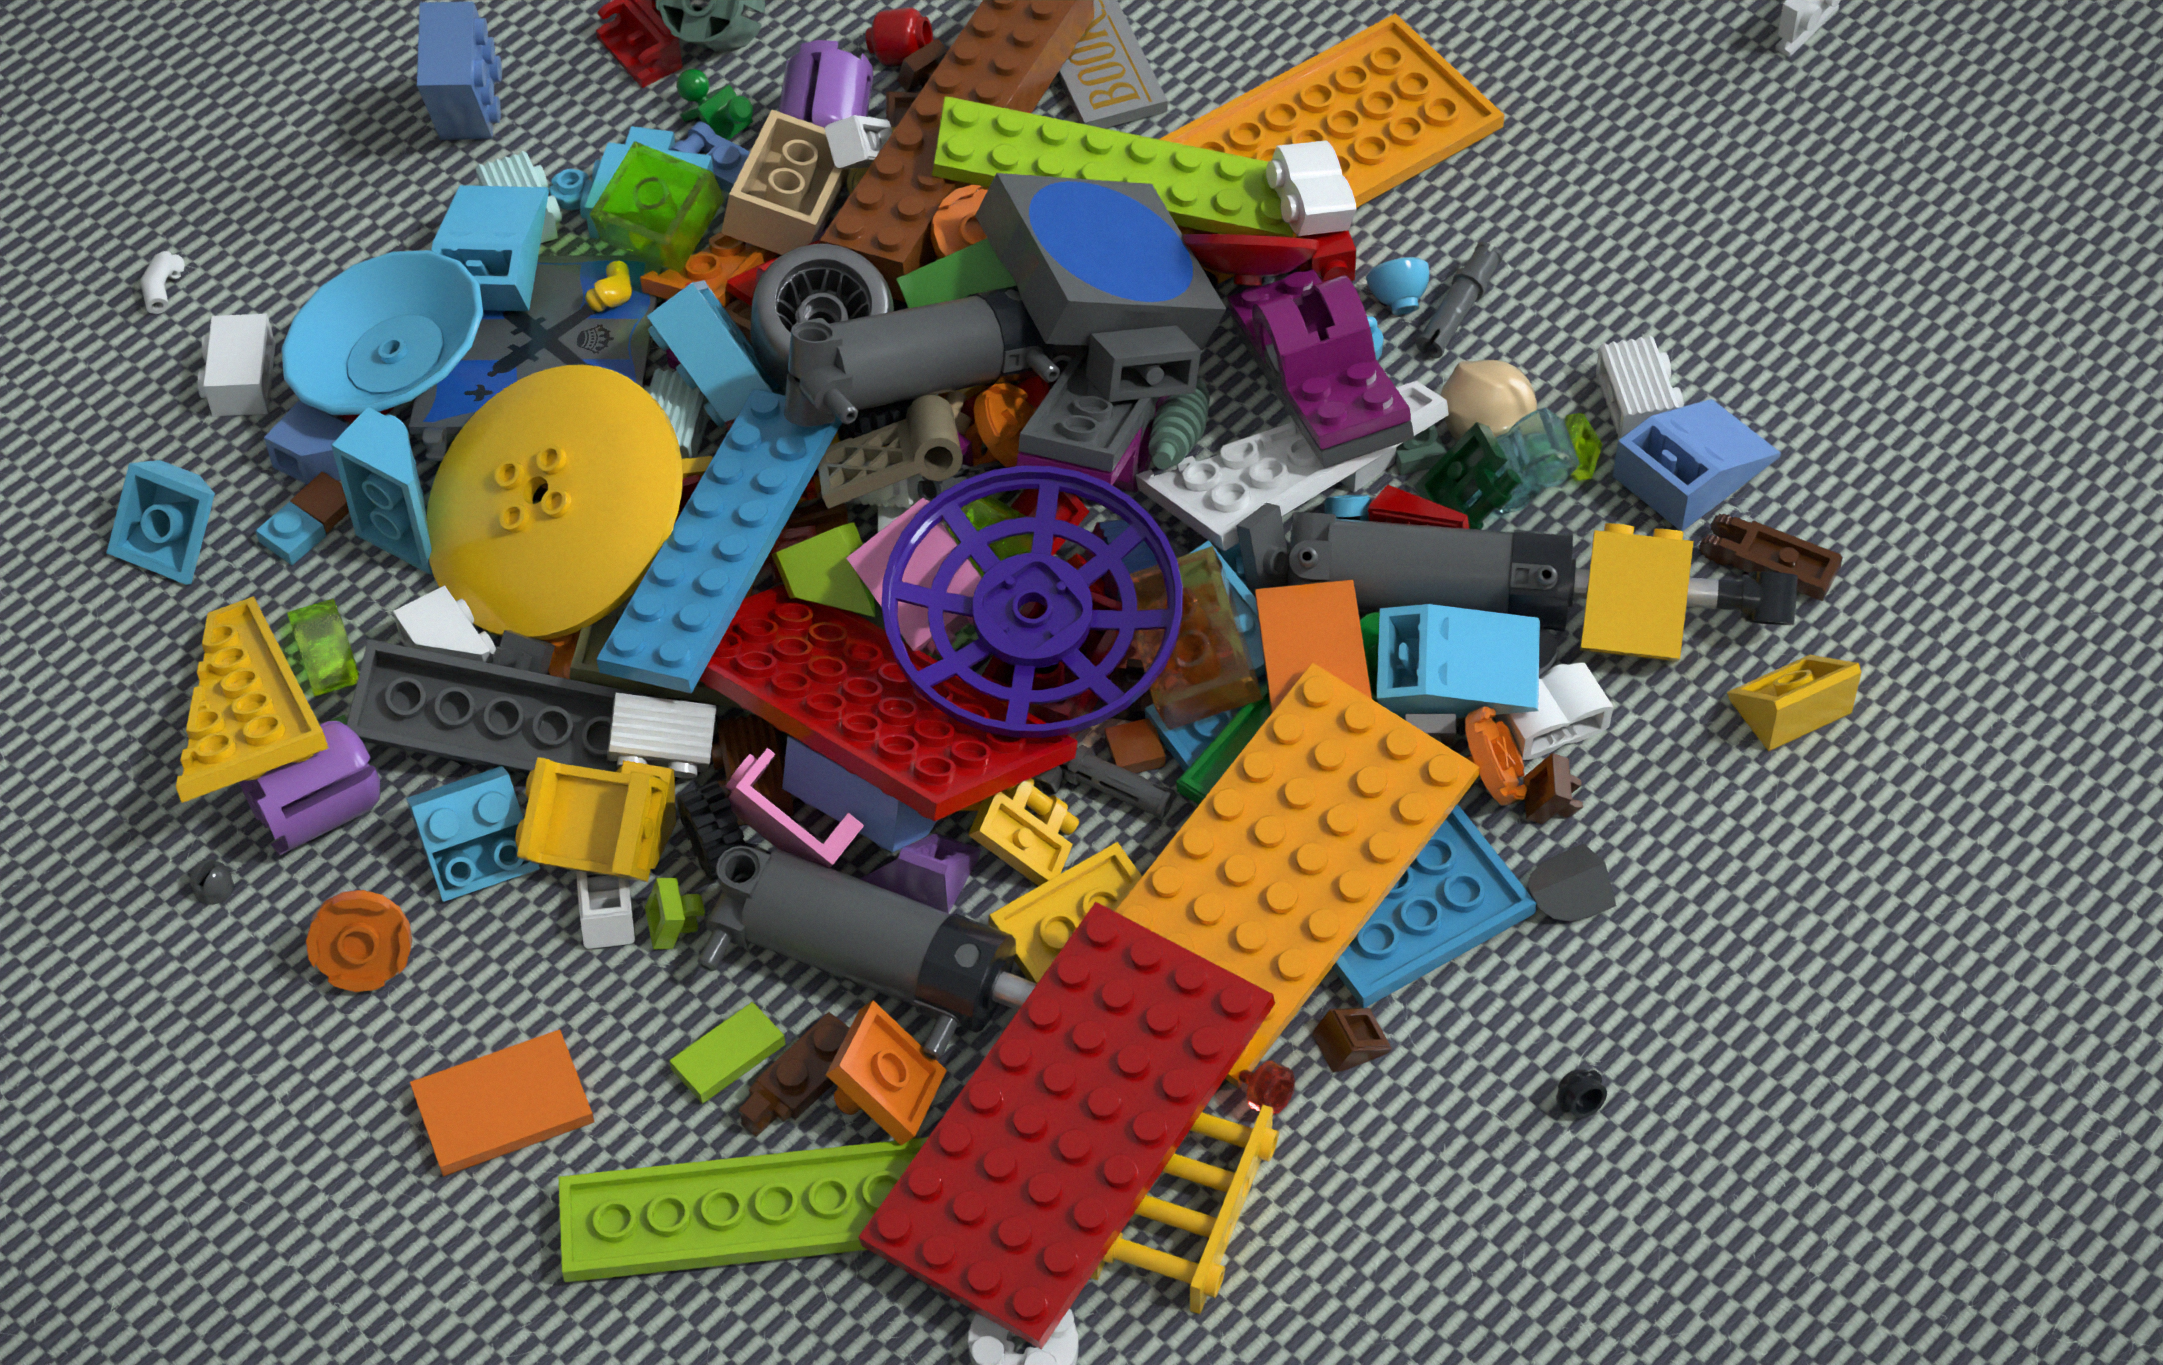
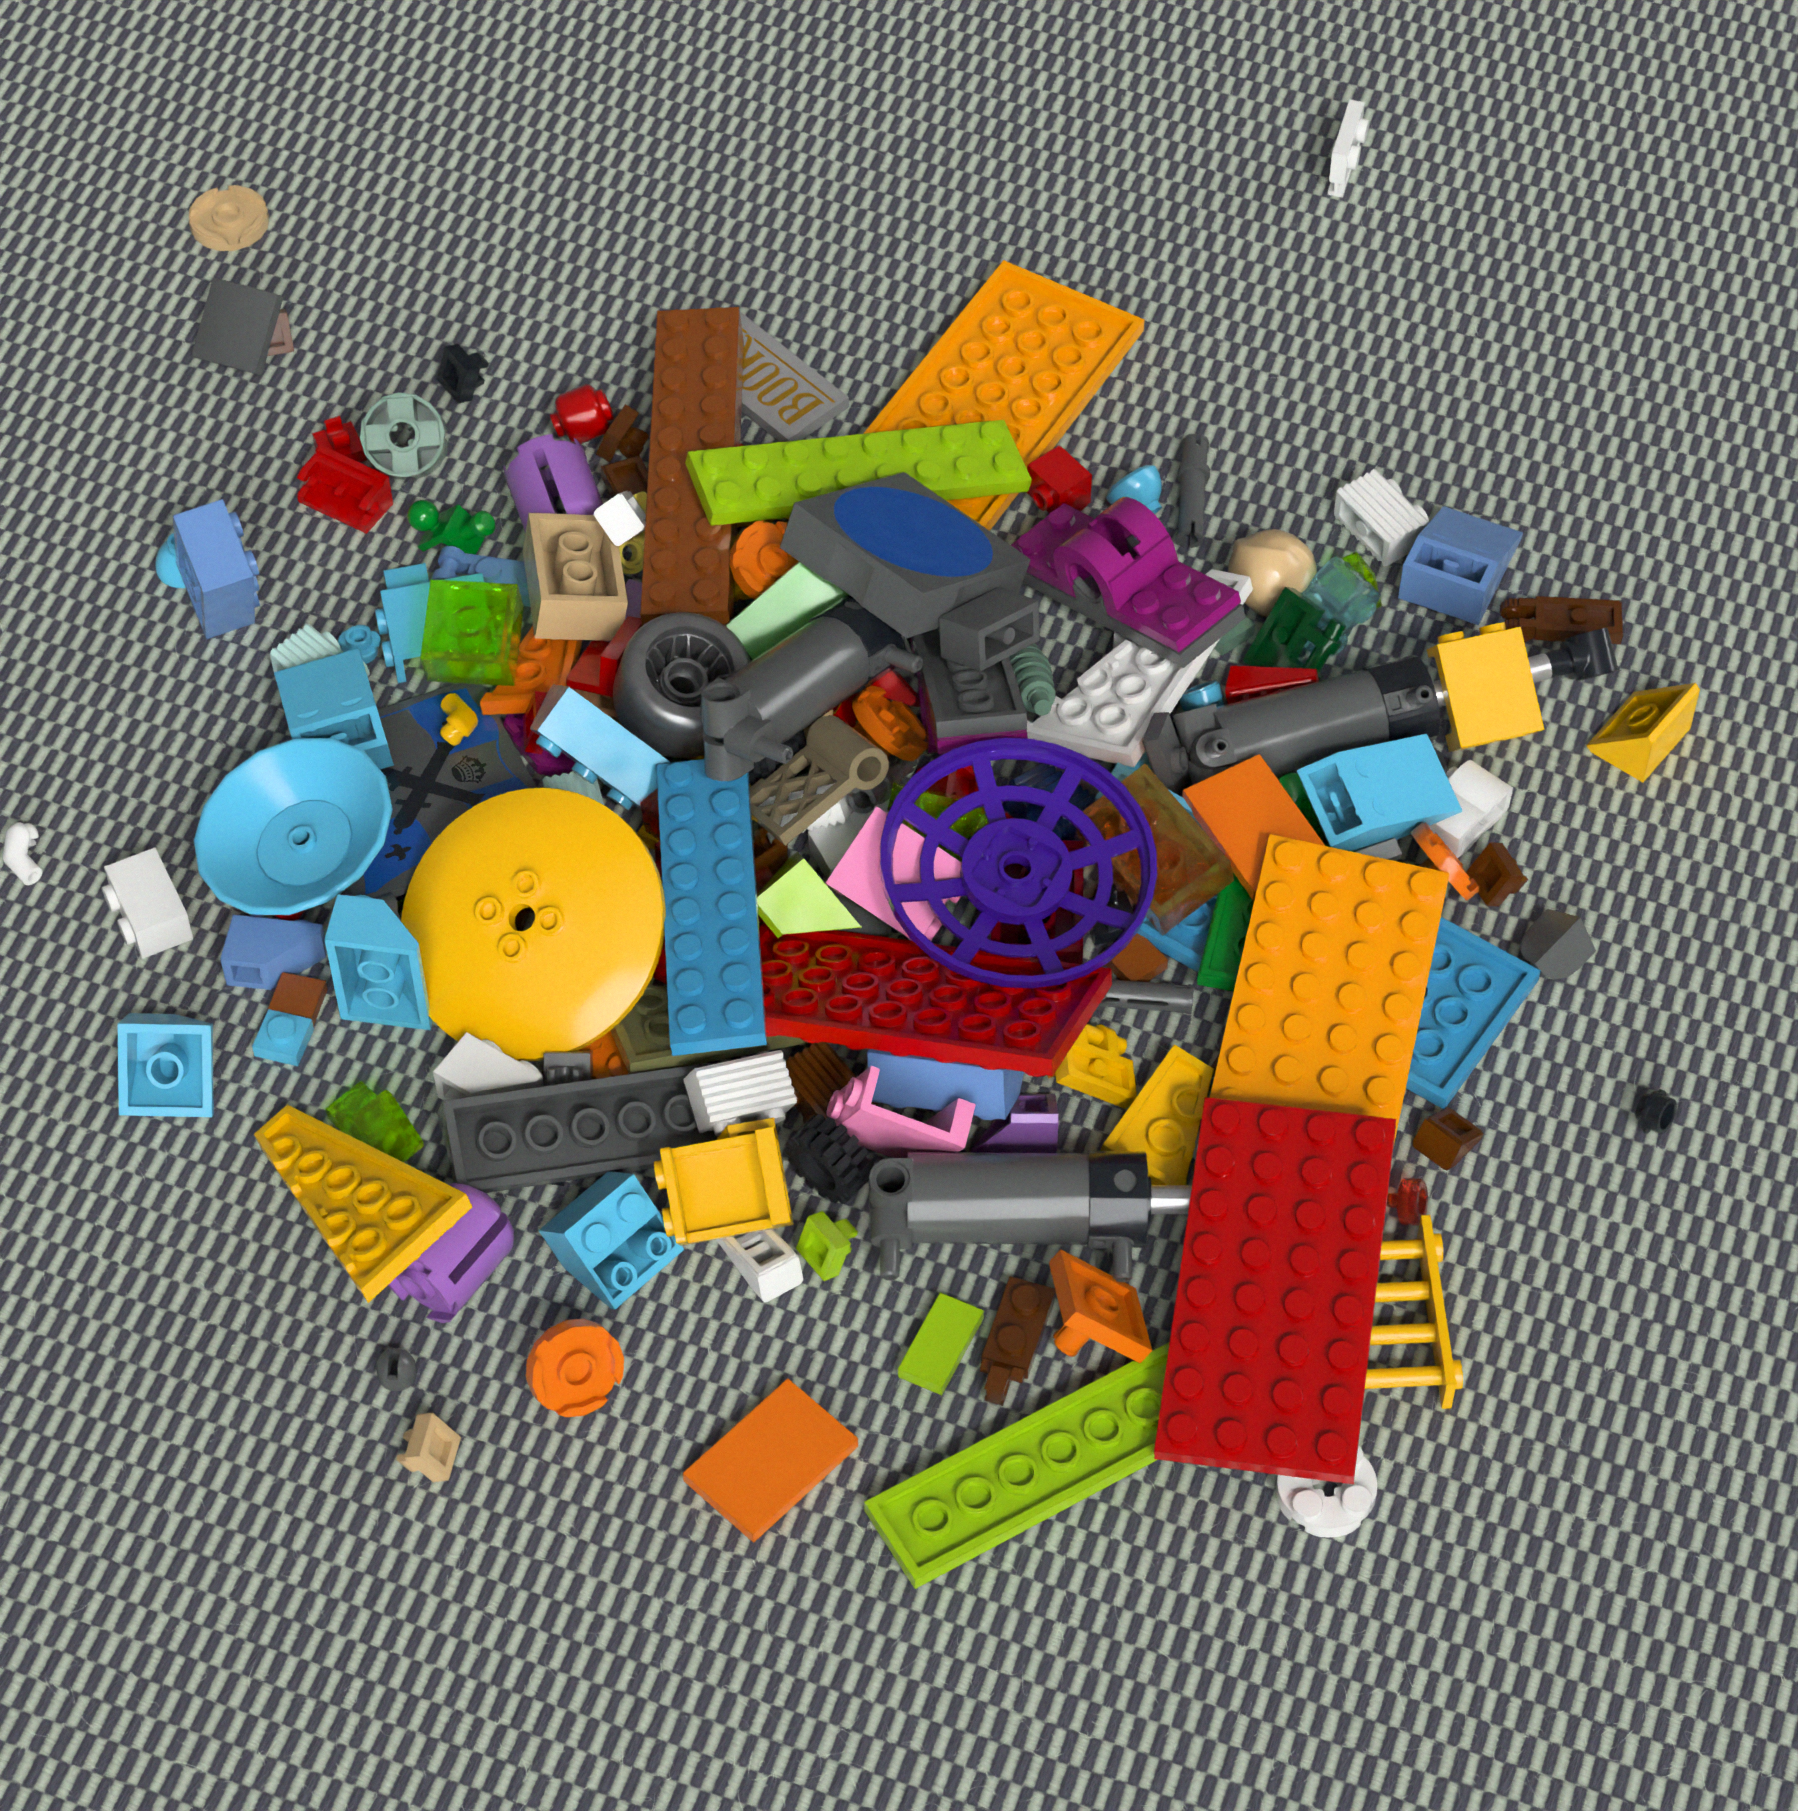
camera: 25 degrees left, 0 degrees up
(195, 967) = (430, 1448): none -> tan tile
(1250, 255) = (1019, 508): red dish -> none
(1311, 188) = (1034, 432): white brick -> none

